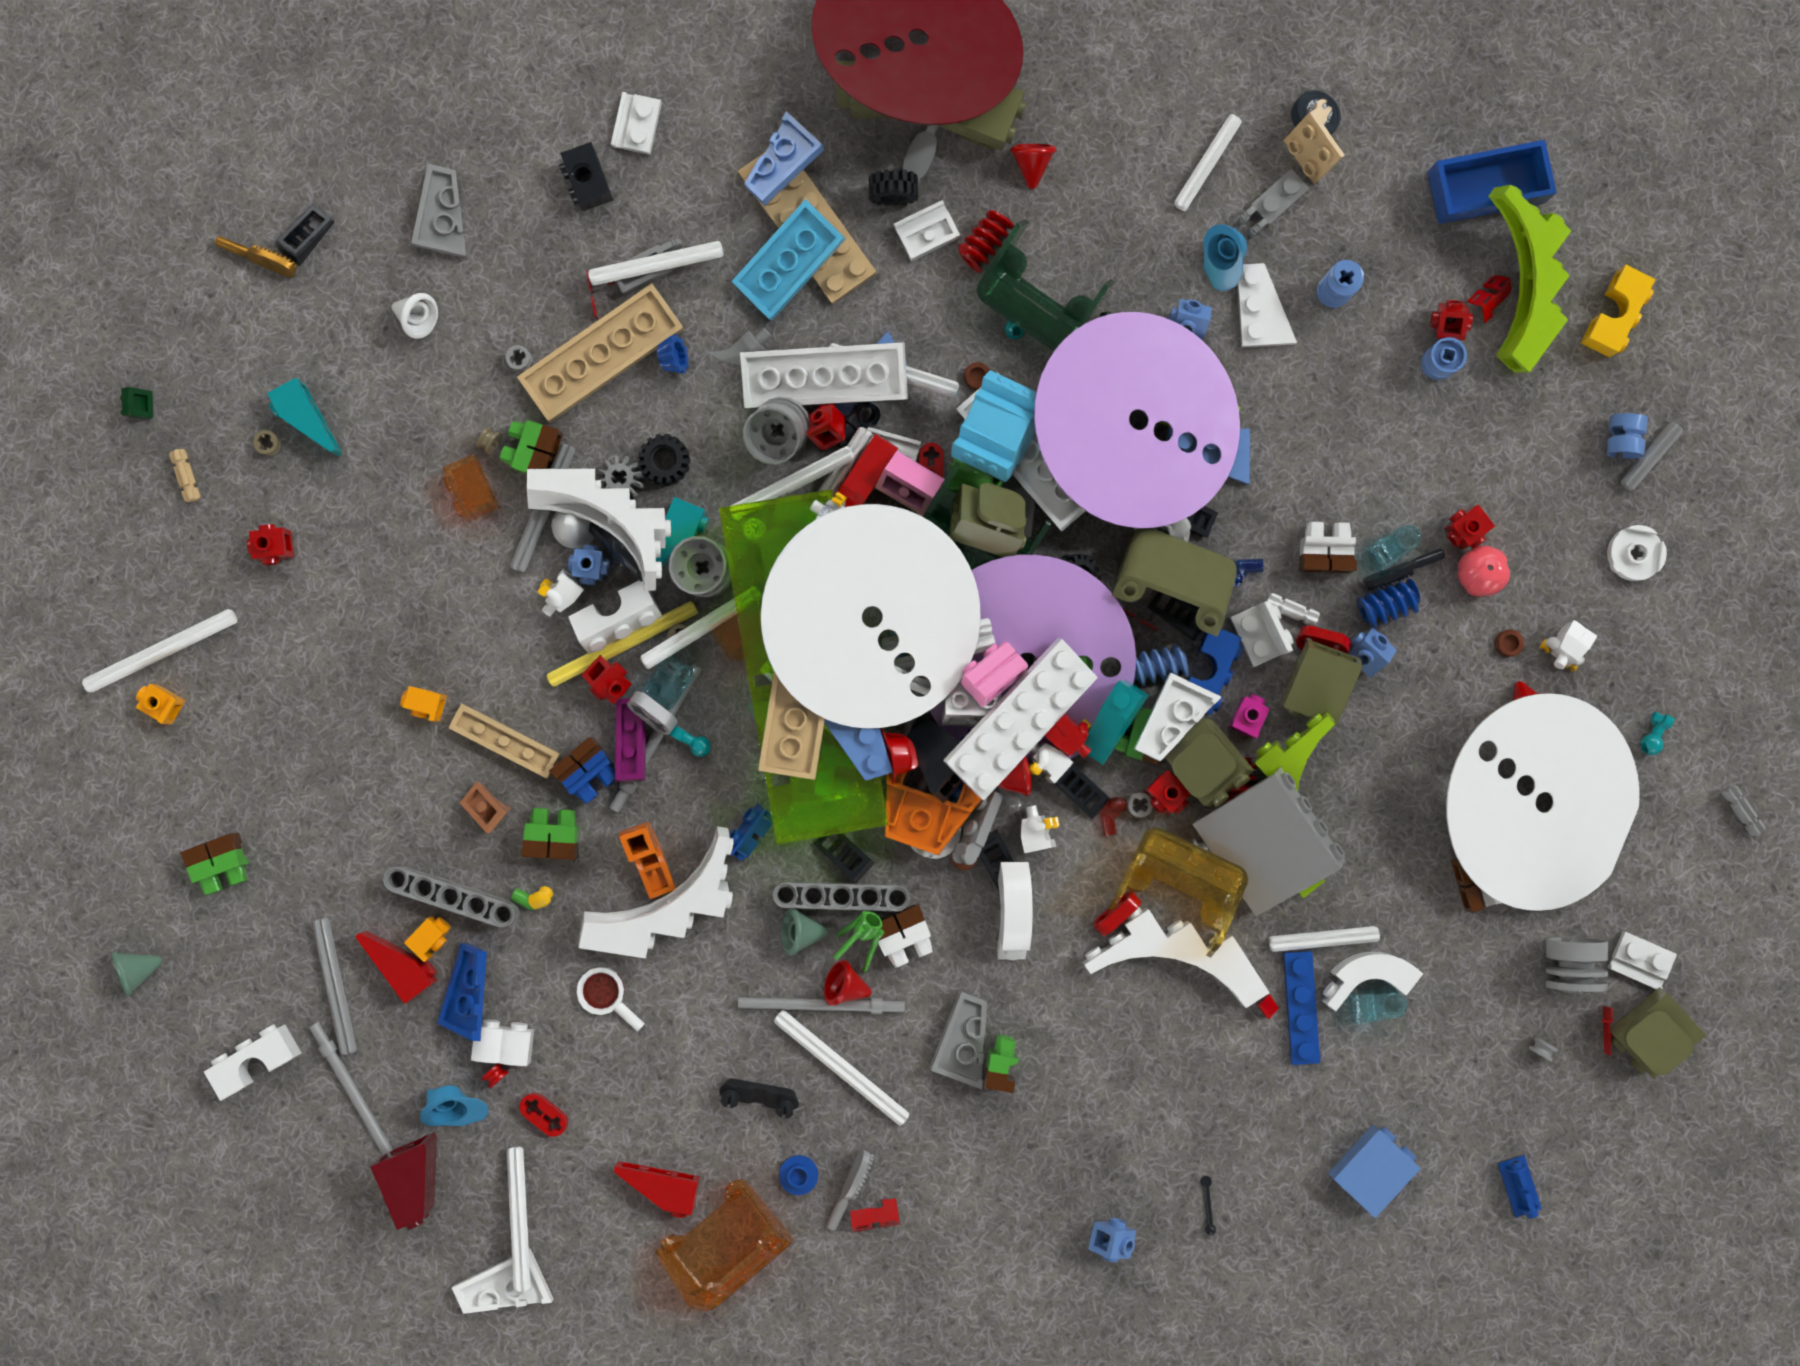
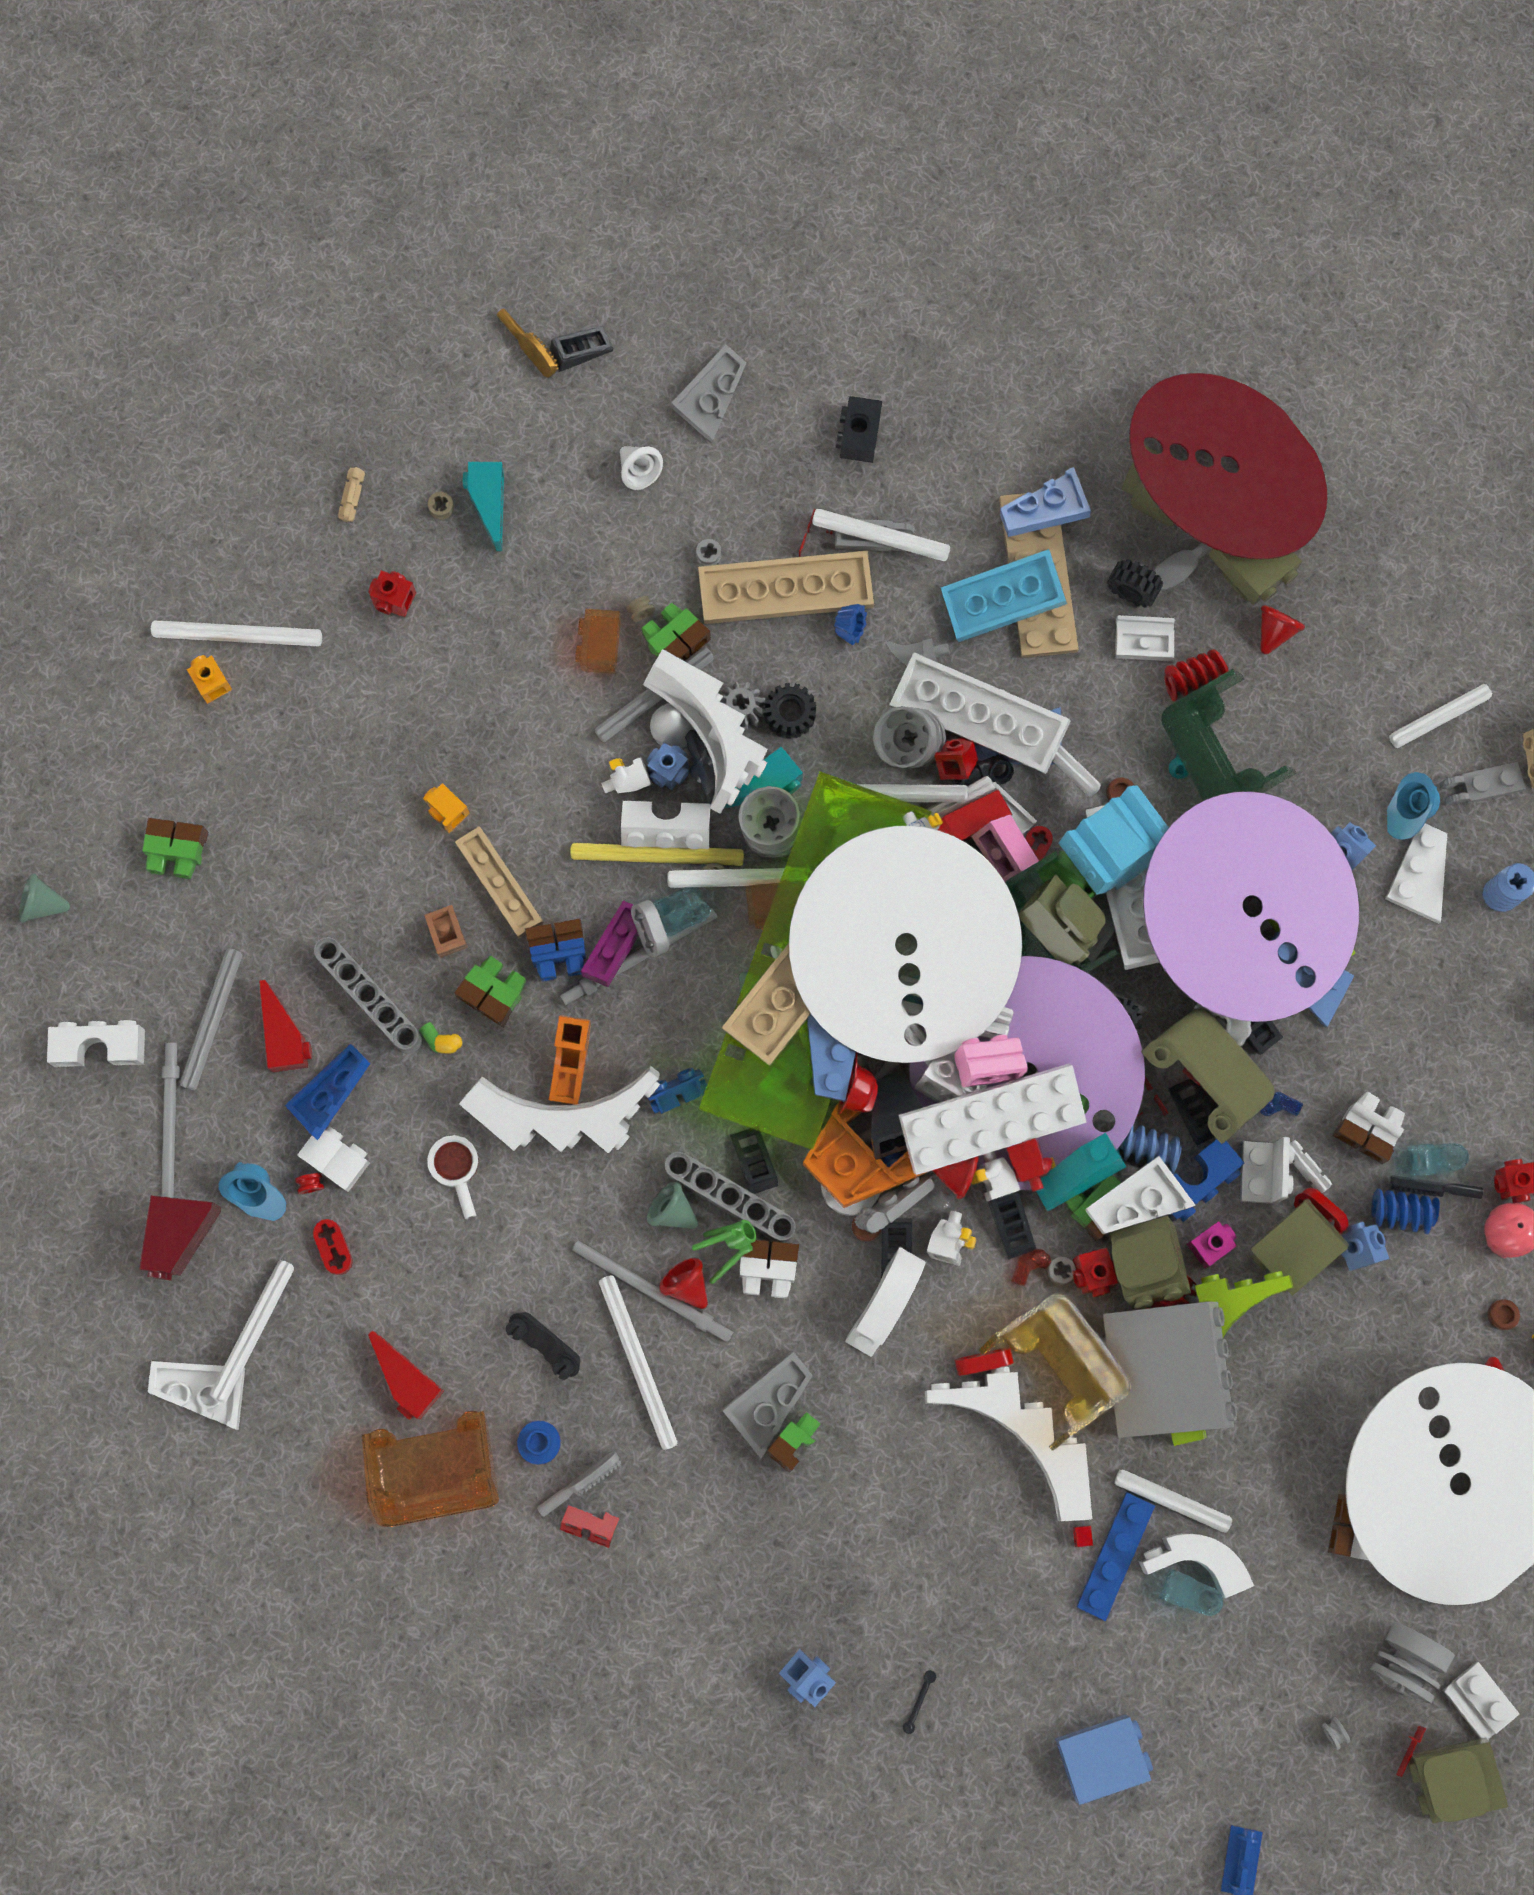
camera: 25 degrees right, 10 degrees down
(137, 403) = (347, 410): dark green tile -> none
(428, 937) = (324, 1021): light orange brick -> none
(606, 679) = (625, 877): red brick -> none
(636, 123) = (931, 408): white plate -> none
(699, 745) = (675, 985): teal arm -> none

